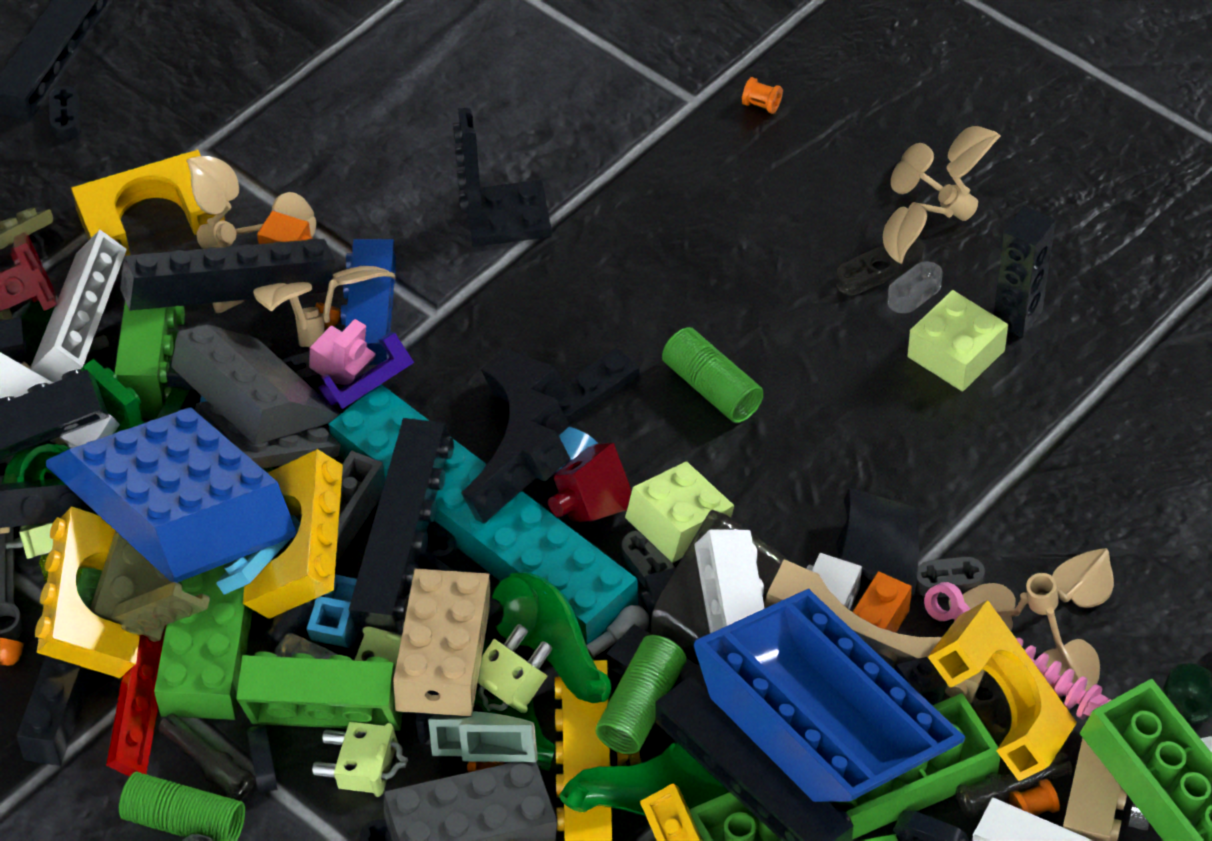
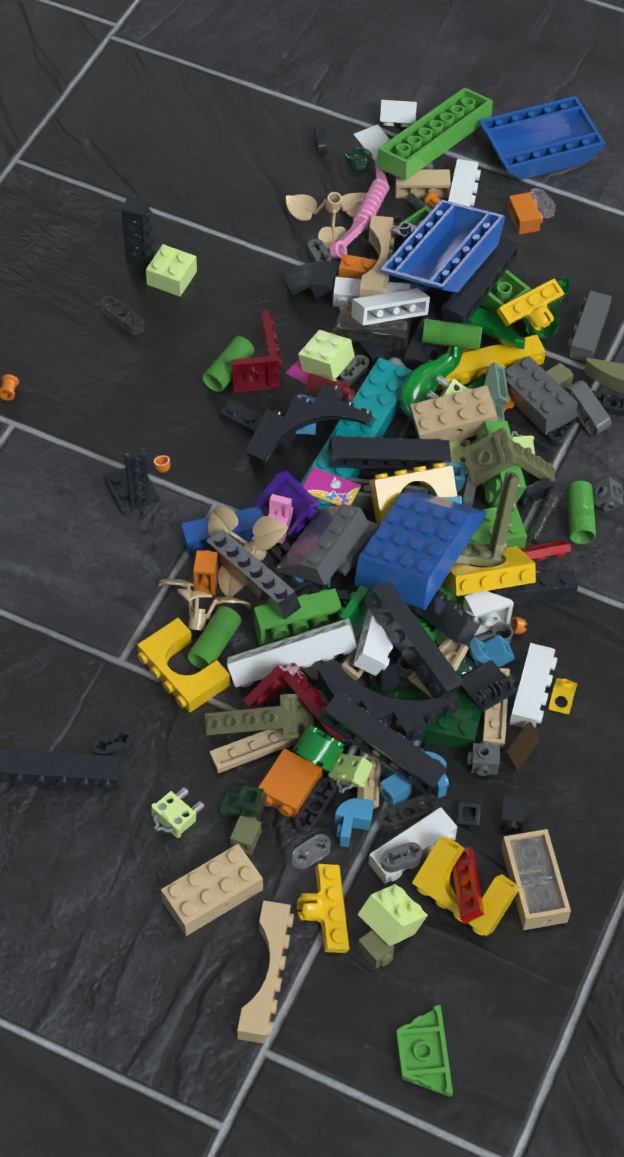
camera: 110 degrees left, 5 degrees up
(26, 587) = (488, 610): none -> white slope
(158, 232) = (214, 640): none -> bright green piece
(298, 650) = (498, 453): none -> olive bracket
(367, 432) = (331, 487): none -> sticker
(541, 255) = (162, 463): none -> orange hinge
(715, 433) = (259, 372): none -> dark red bracket
(911, 283) = (134, 298): clear beam -> none
(955, 200) = (65, 258): tan plant -> none
(1038, 715) = (398, 202): yellow arch -> none

